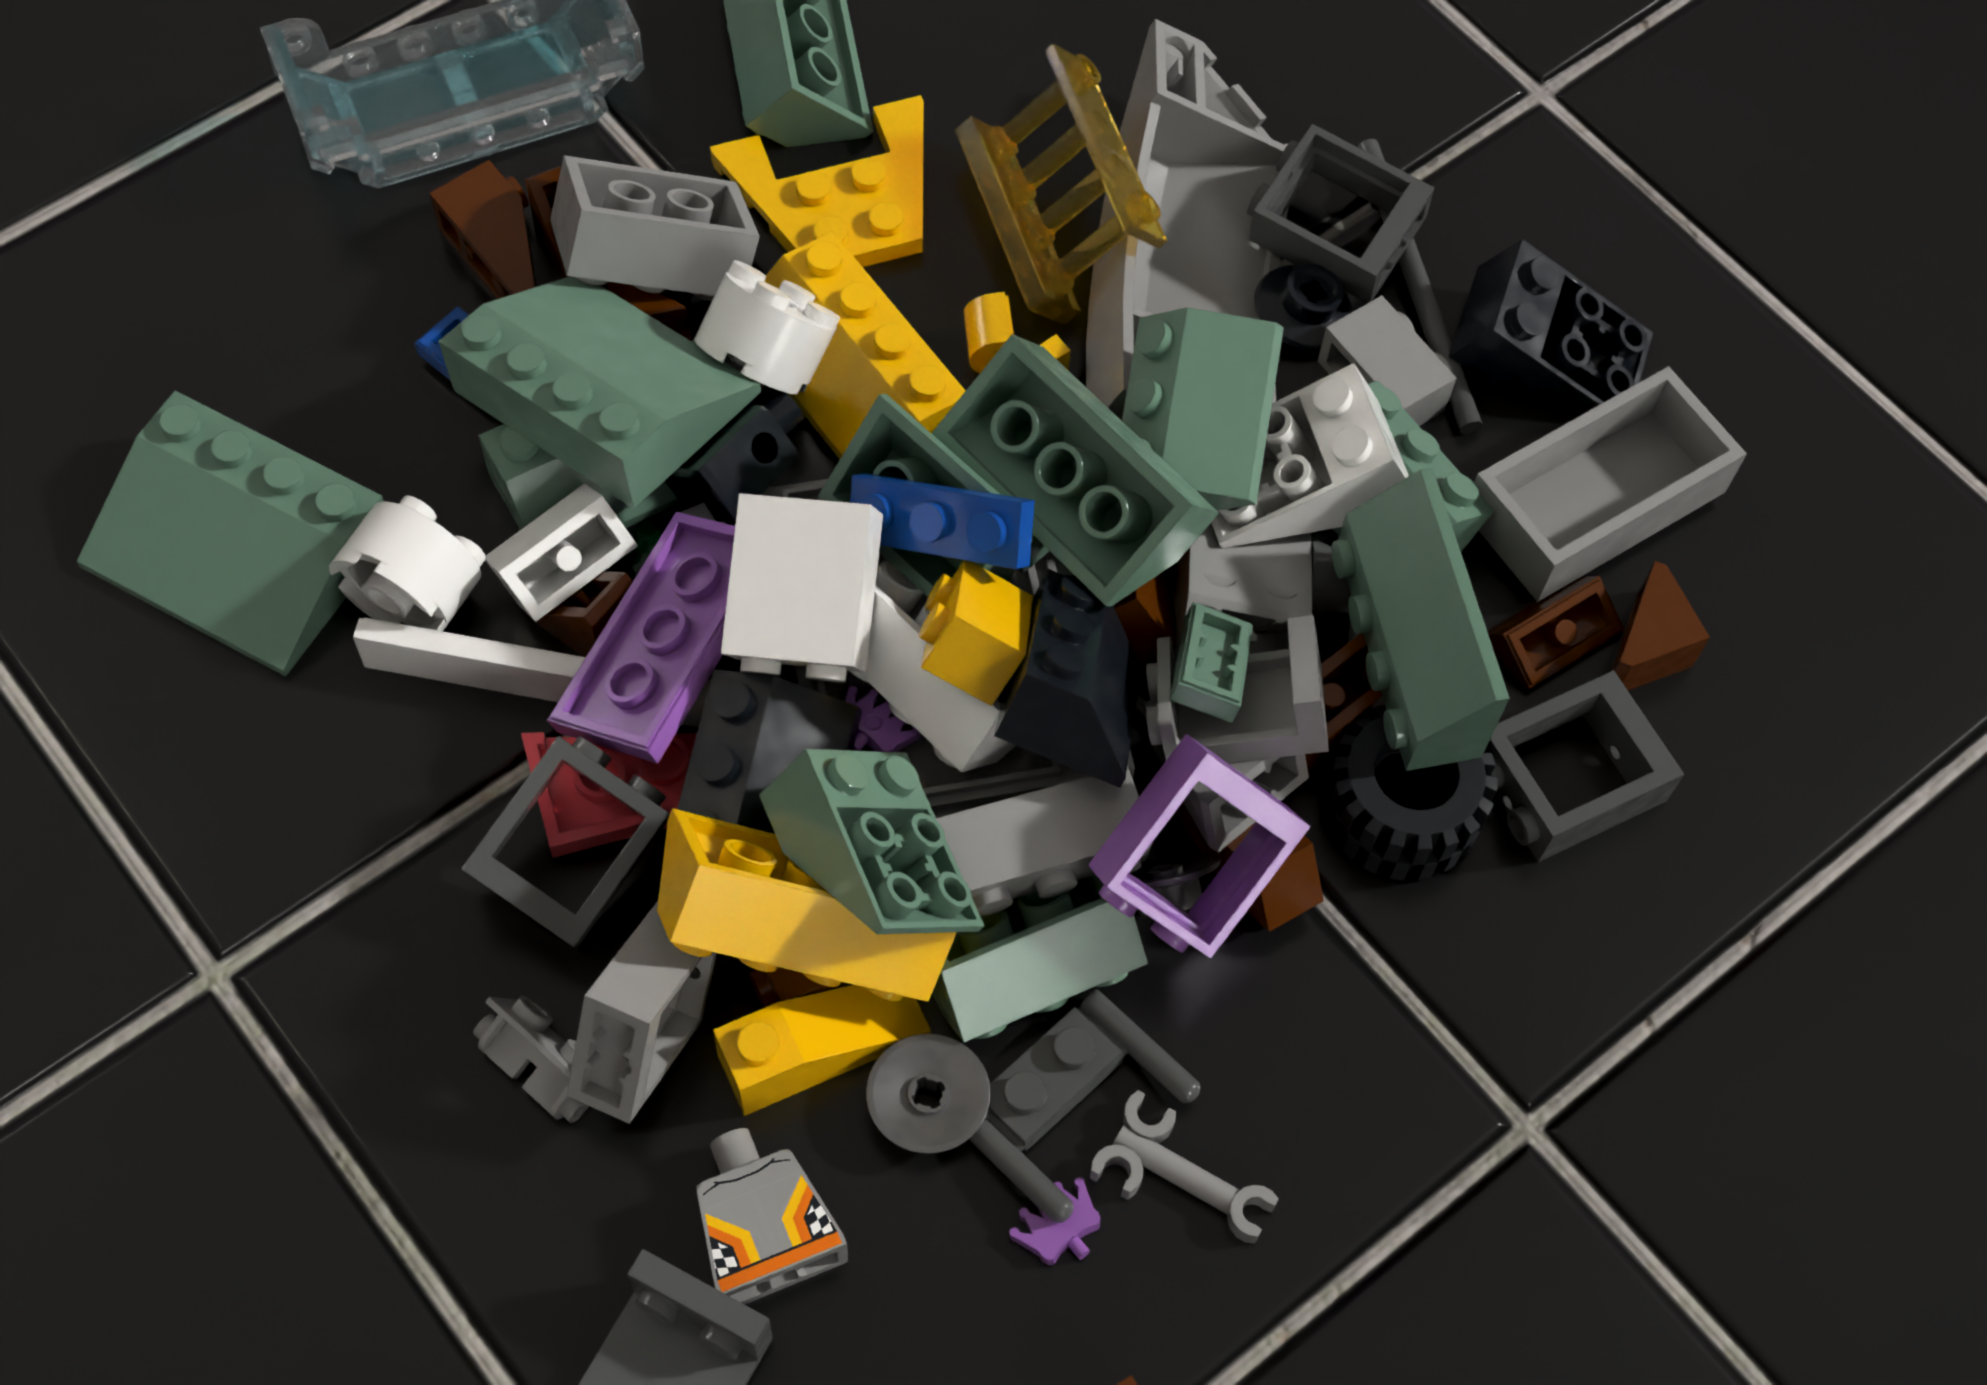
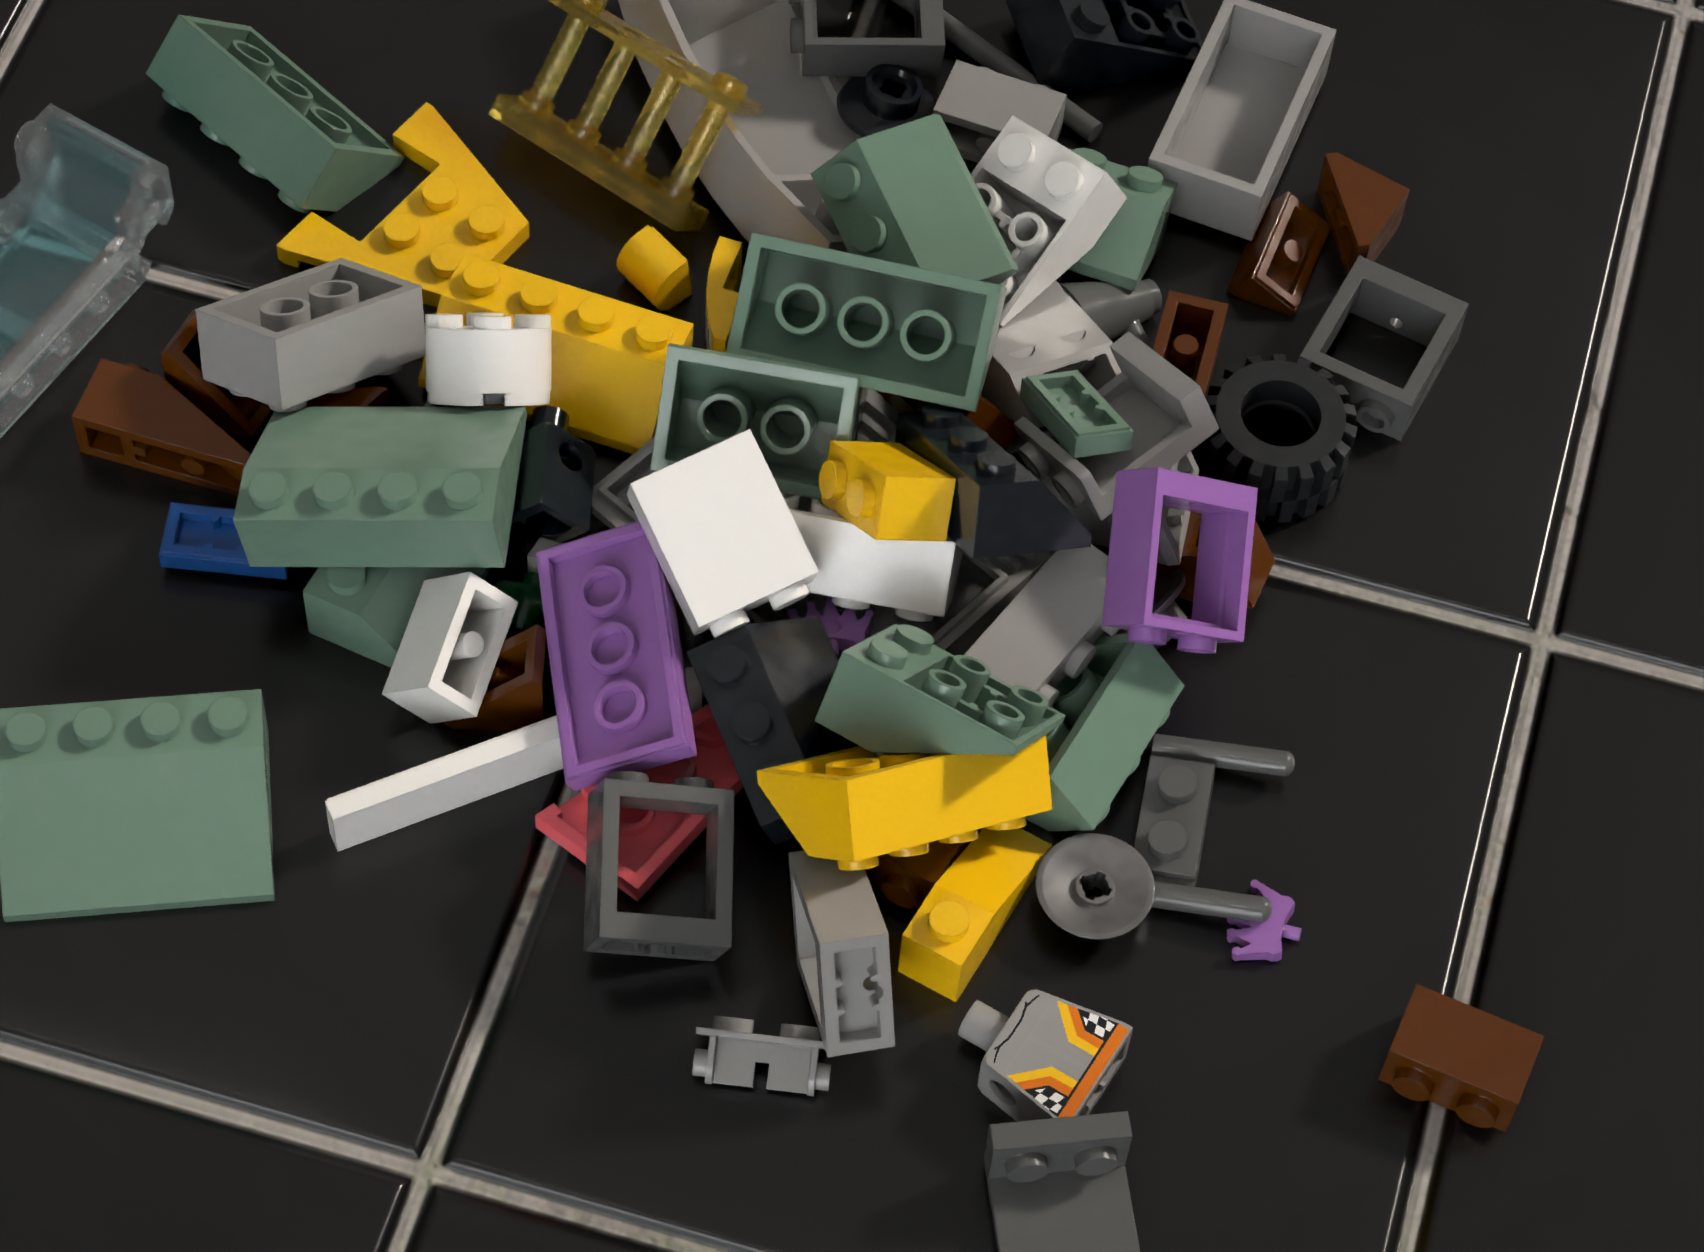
camera: 35 degrees left, 5 degrees down
(407, 566) = (329, 734): white brick -> none
(949, 520) = (801, 413): blue plate -> none
(1139, 1148) = (1280, 835): light grey bar -> none
(1420, 625) = (1212, 290): sand green slope -> none

